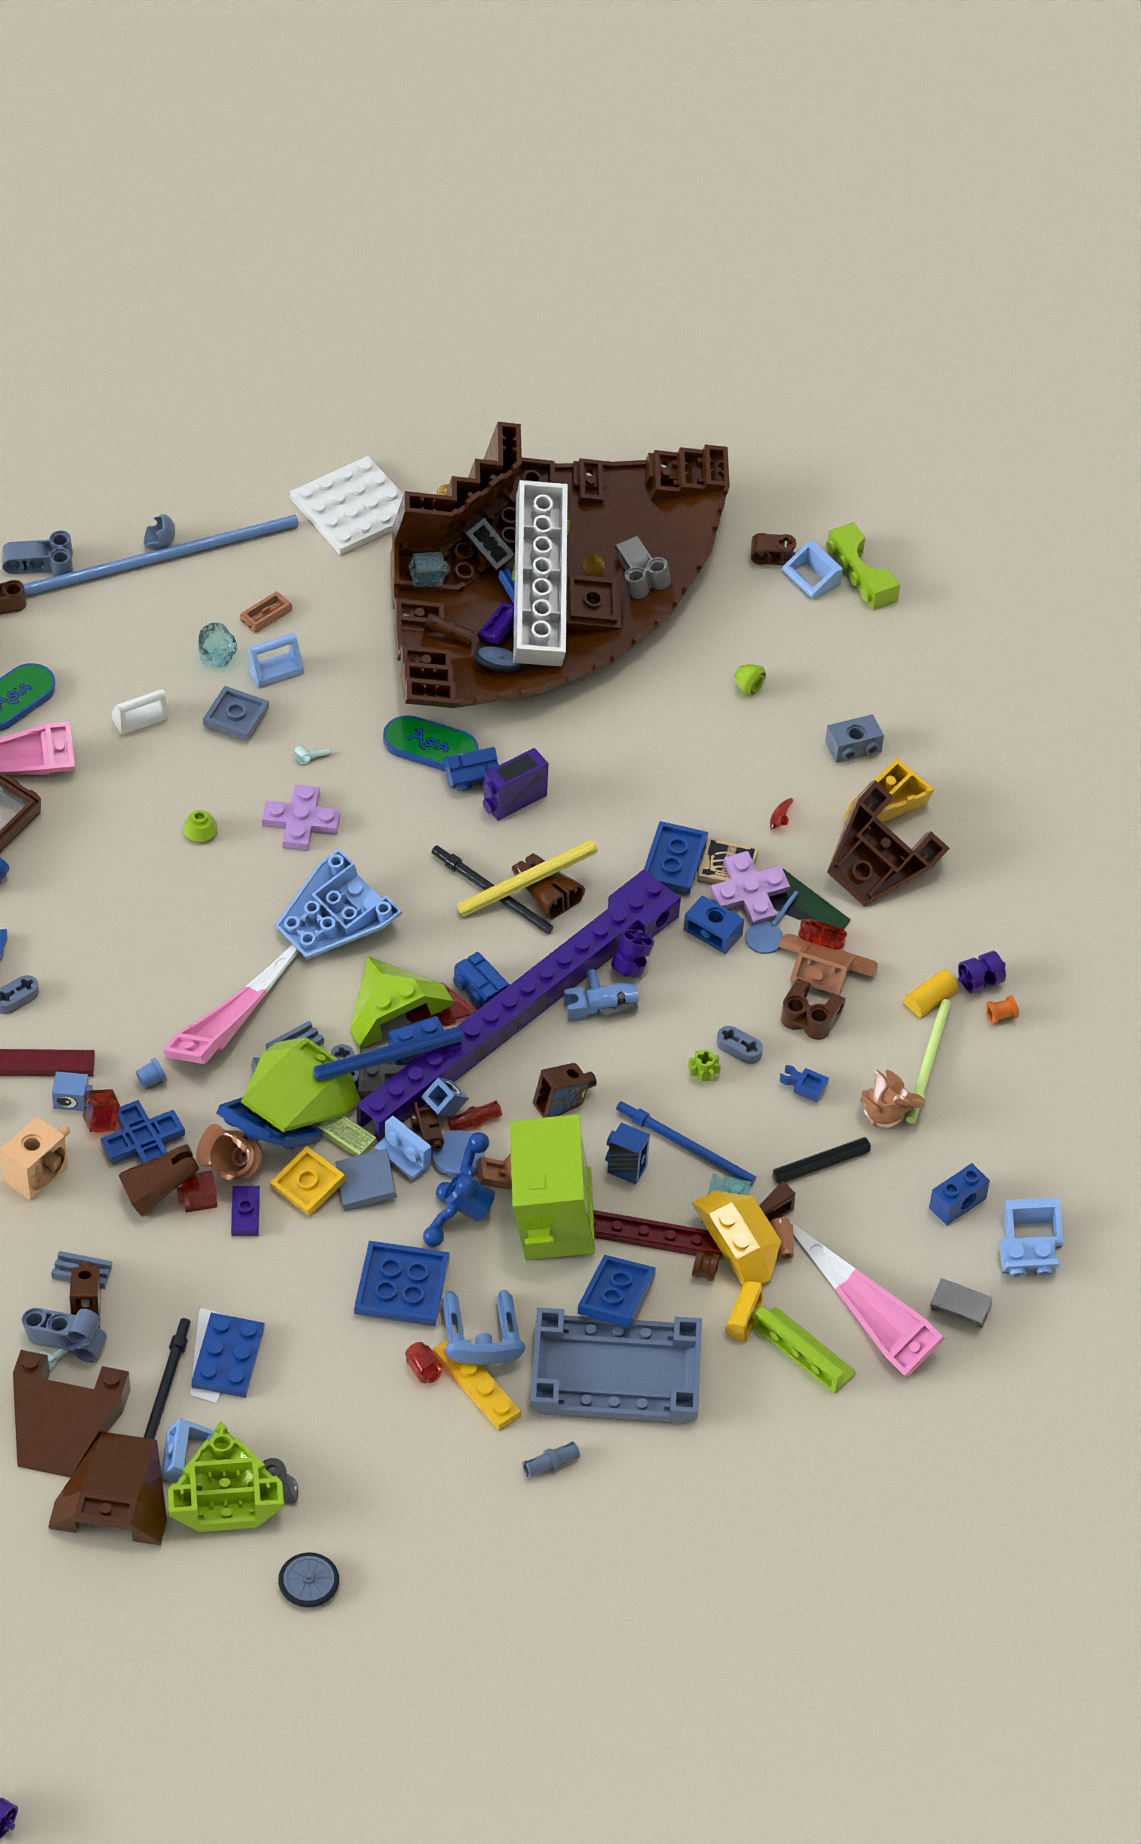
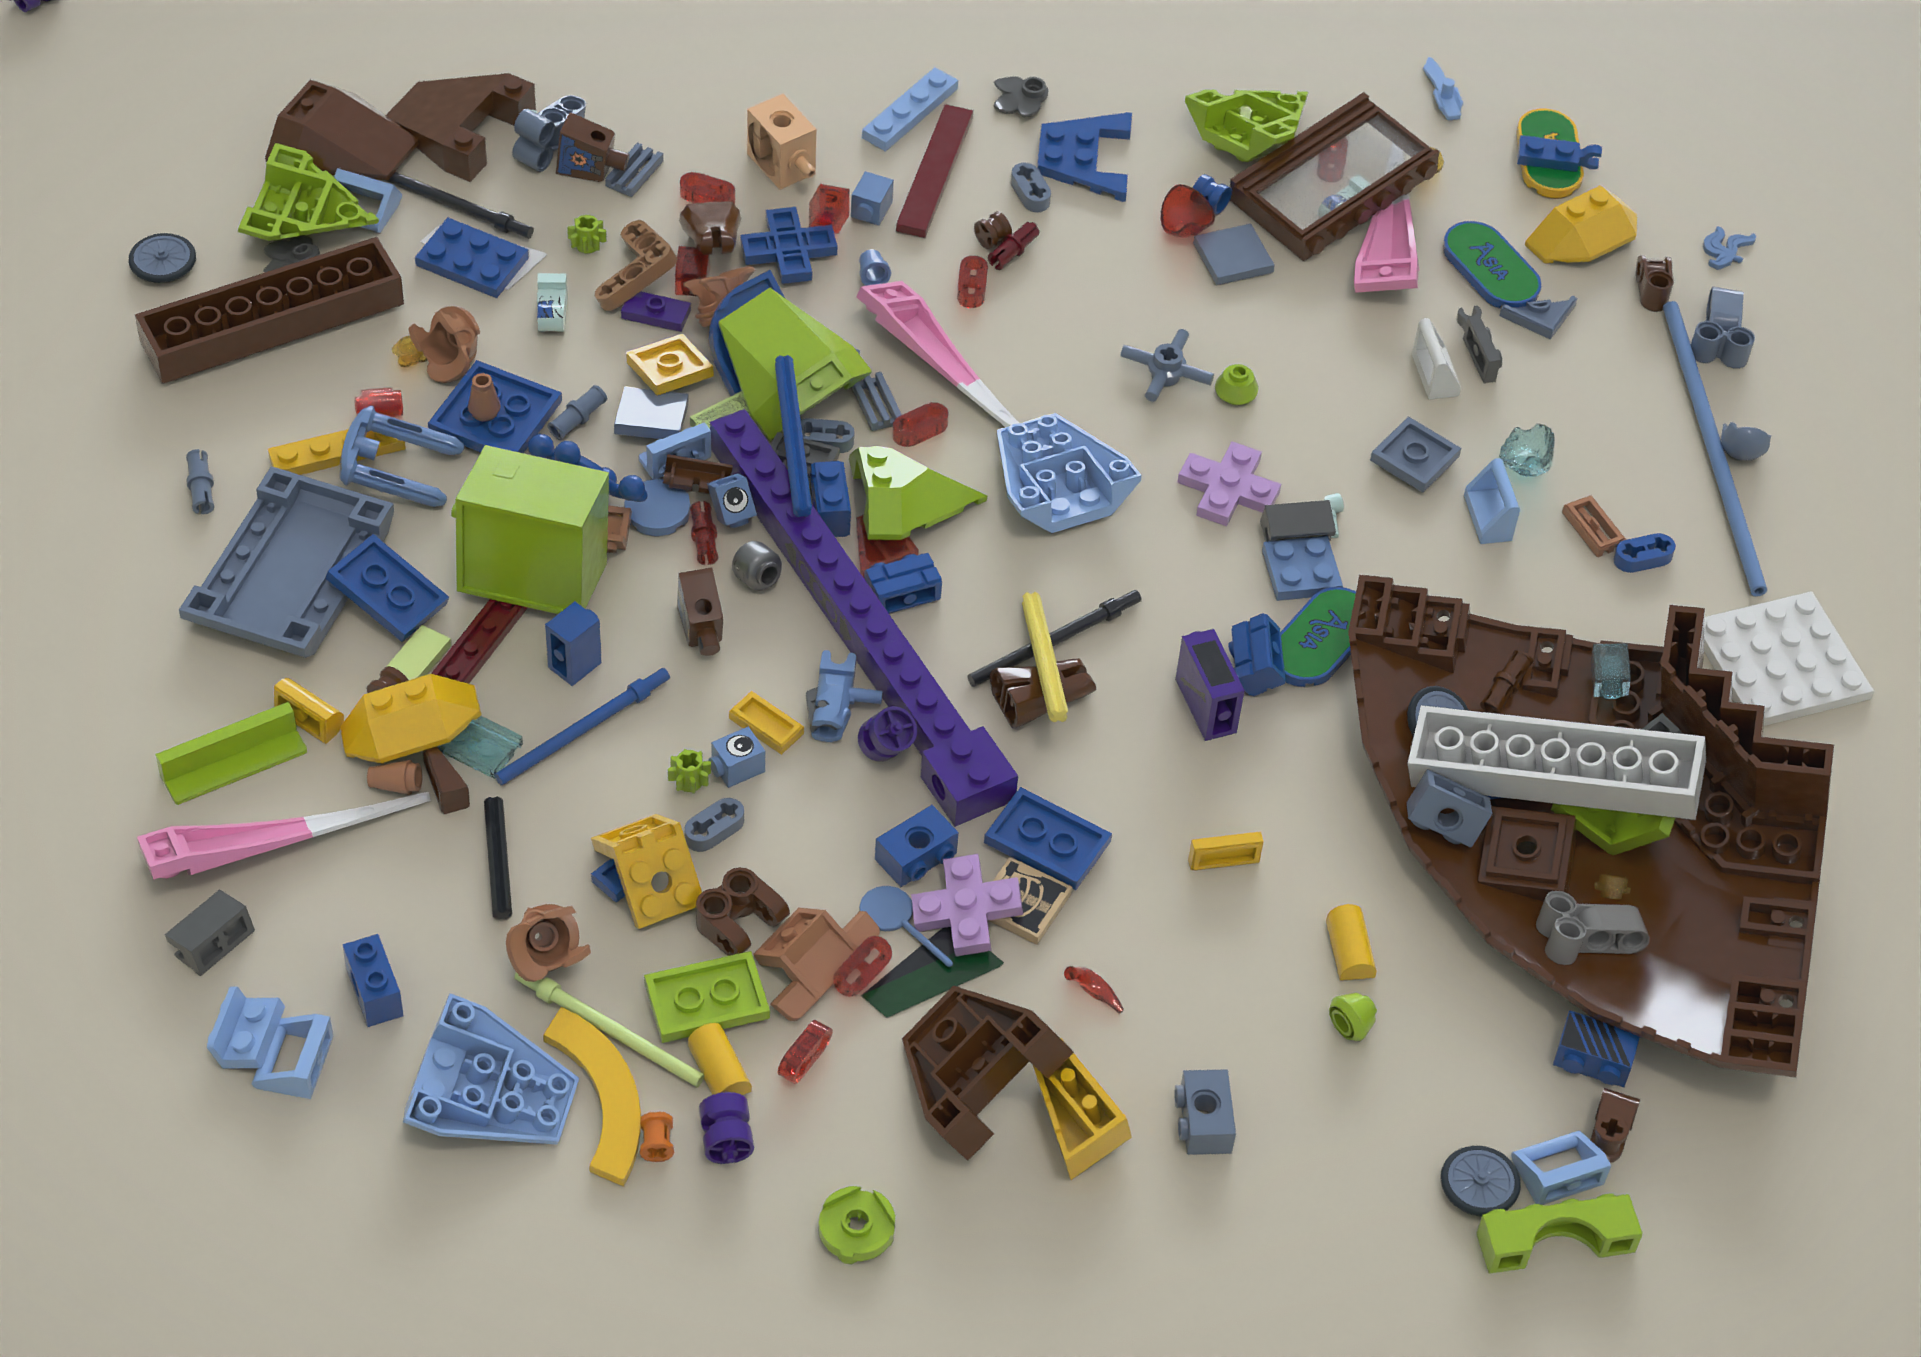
camera: 105 degrees right, 0 degrees up
(27, 882) = (1185, 212): none -> clear red helmet
(52, 853) = (1233, 254): none -> sand blue tile
(57, 660) = (1540, 316): none -> sand blue tile
(82, 1004) = (992, 230): none -> reddish brown wheel
(92, 989) = (1013, 245): none -> dark red axle
(97, 1211) = (703, 188): none -> clear red beam
(107, 690) = (1480, 344): none -> dark grey plate
(140, 1010) = (976, 281): none -> clear red beam
(179, 1275) = (587, 234): none -> lime gear
(197, 868) = (1167, 365): none -> sand blue bar
(210, 1217) = (642, 270): none -> medium nougat beam
(270, 1278) = (552, 301): none -> light aqua leg
(287, 579) = (1643, 550): none -> blue beam
(310, 1009) = (920, 424): none -> clear red beam
(333, 767) = (1297, 520): none -> dark grey hinge
(346, 1327) = (448, 344): none -> nougat helmet
(351, 1357) = (407, 352): none -> clear yellow plate
(354, 1466) = (269, 309): none -> reddish brown brick
(369, 764) = (1301, 567): none -> medium blue plate
(381, 1228) = (577, 412): none -> sand blue pin
(409, 1276) = (483, 398): none -> nougat cone
(498, 1072) = (757, 565): none -> flat silver head
(582, 637) = (1438, 793): none -> sand blue brick
(636, 1038) = (766, 722): none -> yellow tile
(646, 761) = (1225, 851): none -> yellow tile
(667, 1262) = (421, 653): none -> yellowish green tile
(680, 1040) = (737, 757): none -> medium blue brick
(691, 691) = (1350, 943): none -> yellow brick
(722, 563) = (1596, 1049): none -> blue brick
(800, 1057) = (641, 852): none -> yellow bracket
(840, 607) = (1480, 1180): none -> sand blue wheel
(884, 1011) = (706, 993): none -> lime plate
(903, 948) = (805, 1051): none -> clear red beam
(975, 1044) = (614, 1088): none -> yellow tile
(1011, 1111) = (488, 1081): none -> light blue wedge
(1013, 907) = (853, 1244): none -> lime plate

